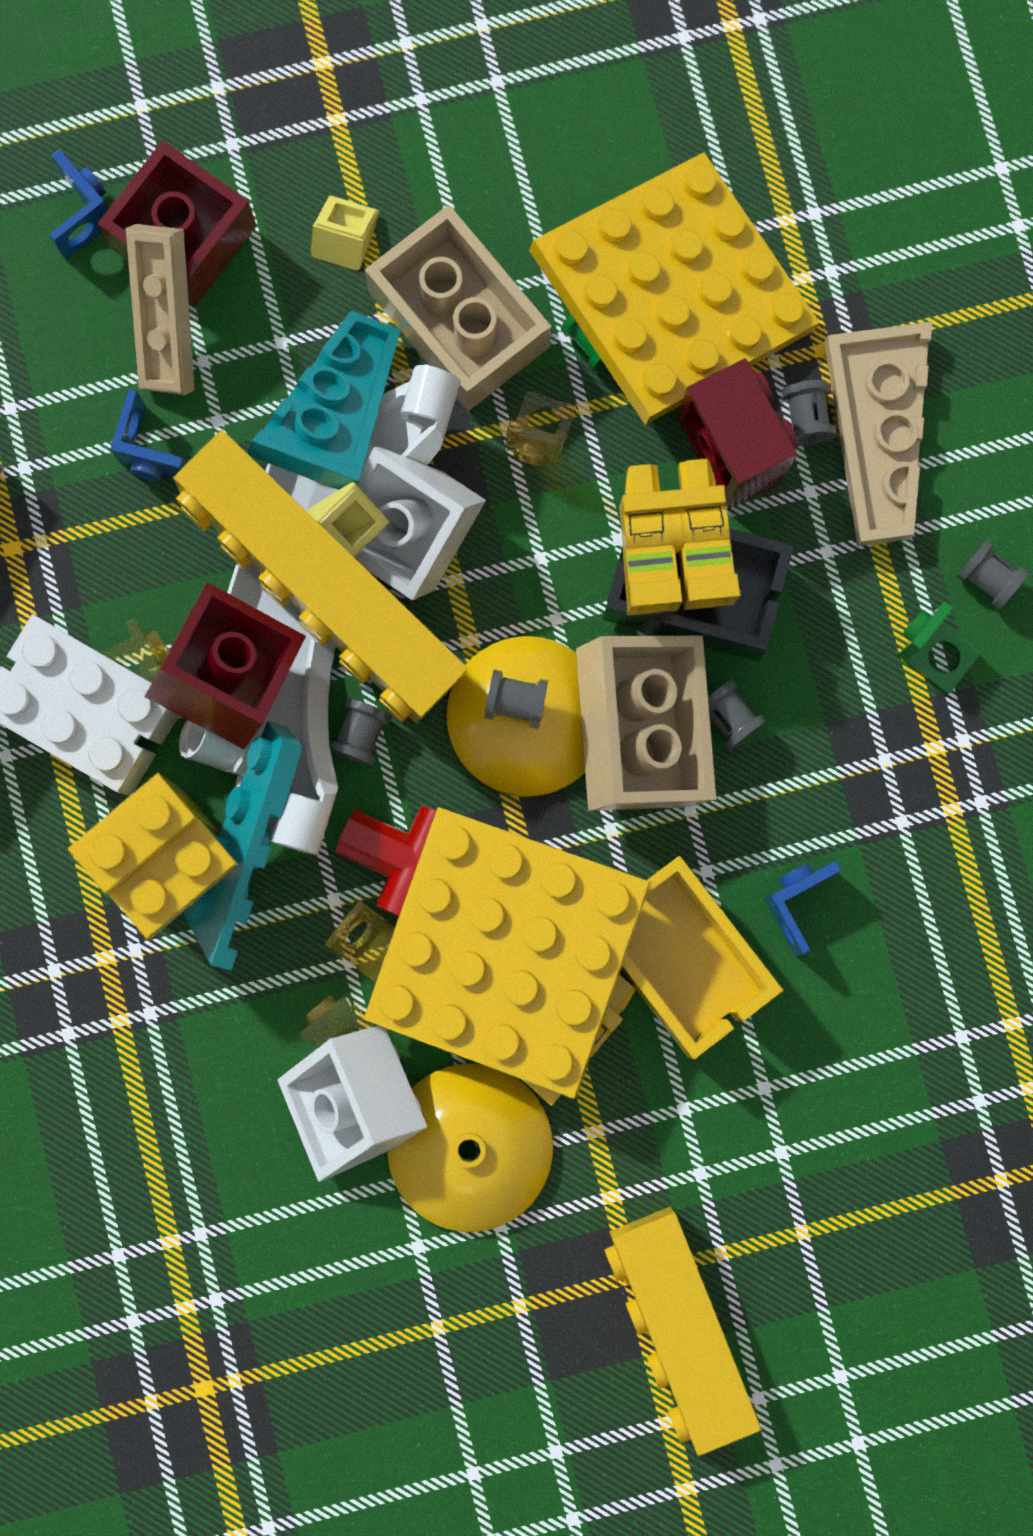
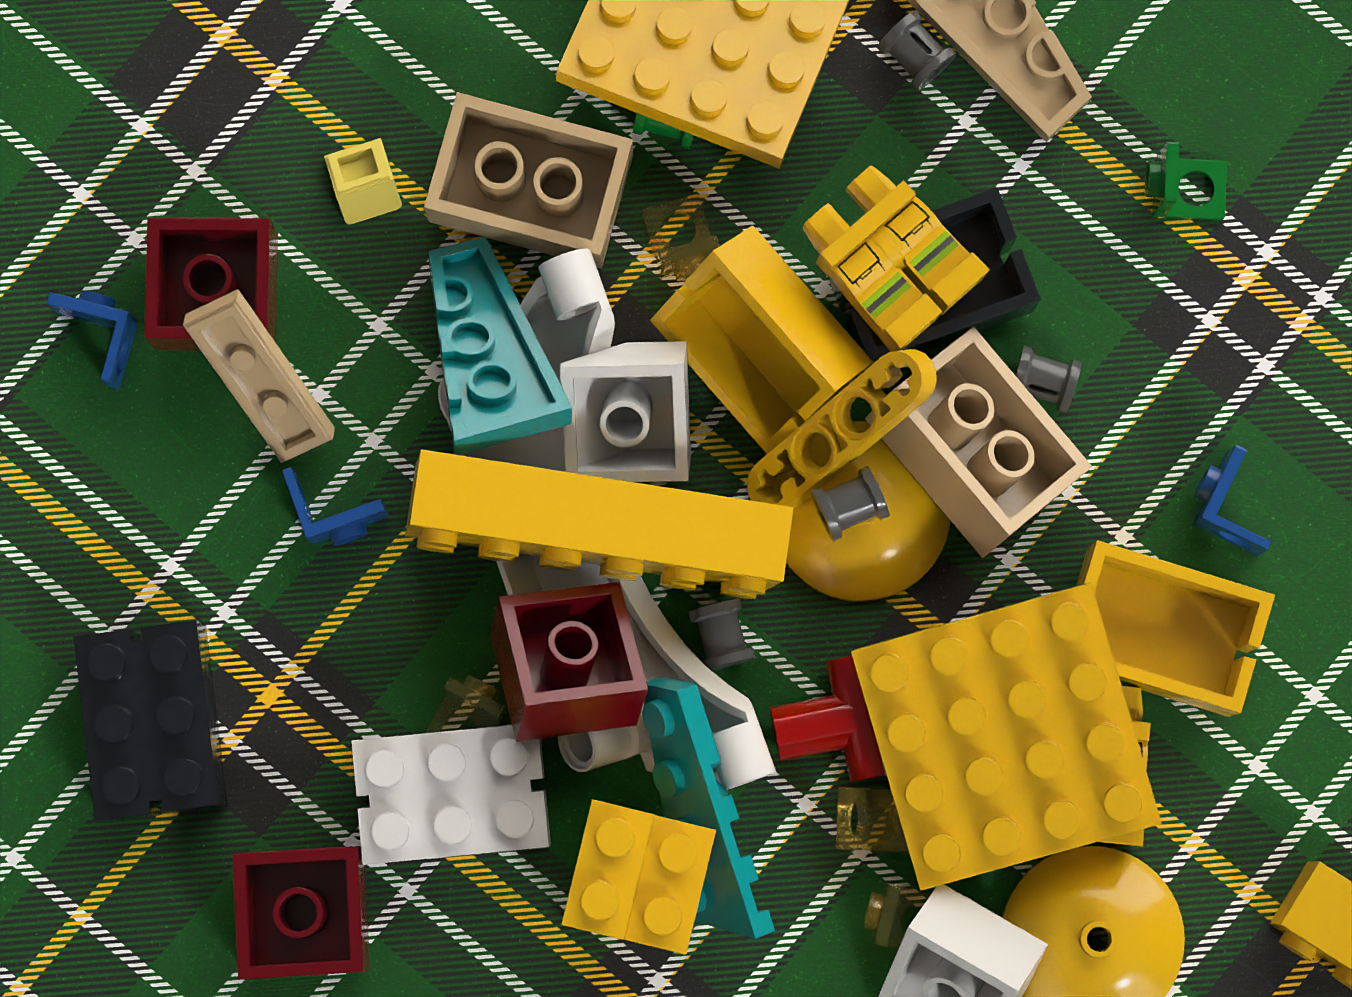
camera: 35 degrees left, 0 degrees up
(349, 518) = (583, 446): light yellow slope -> none
(540, 536) = (760, 338): none -> yellow piece
(546, 635) = (836, 426): none -> yellow beam
(738, 431) = (870, 116): dark red brick -> none
(992, 574) = (1187, 83): dark grey bush -> none

